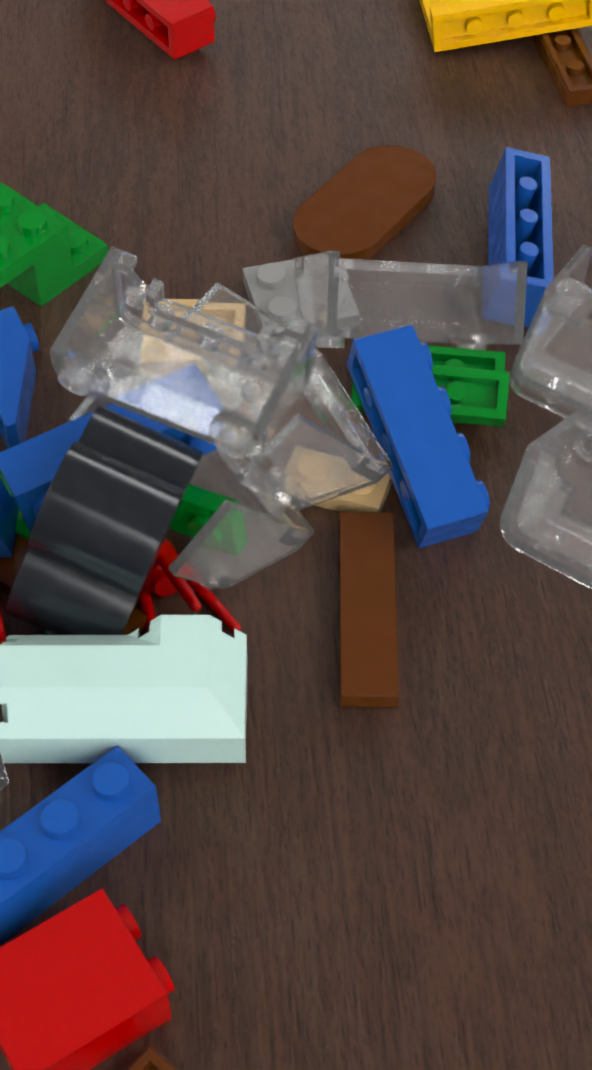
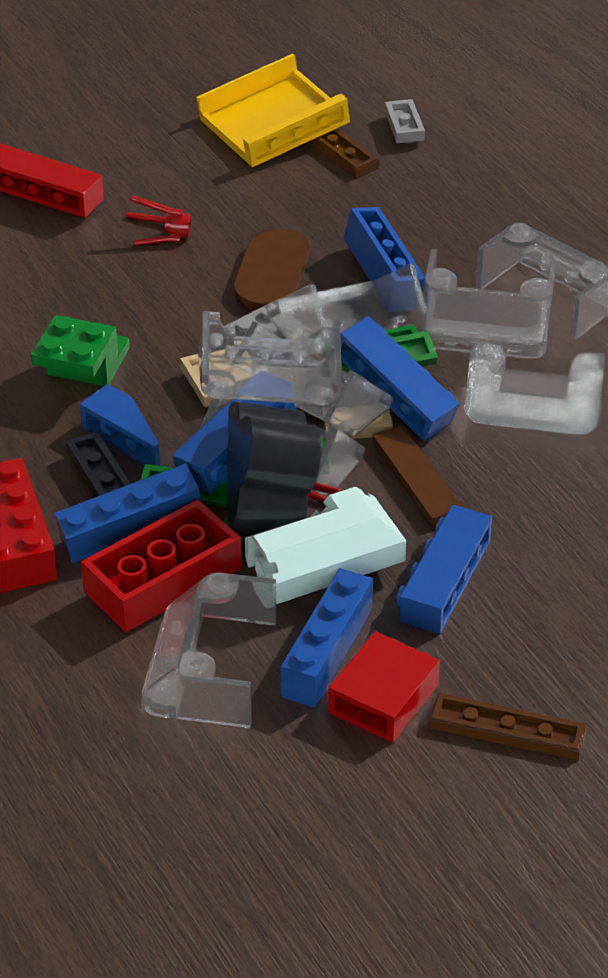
camera: 25 degrees left, 10 degrees down
(275, 100) = (176, 223): none -> red plant
(300, 801) = (444, 569): none -> blue brick

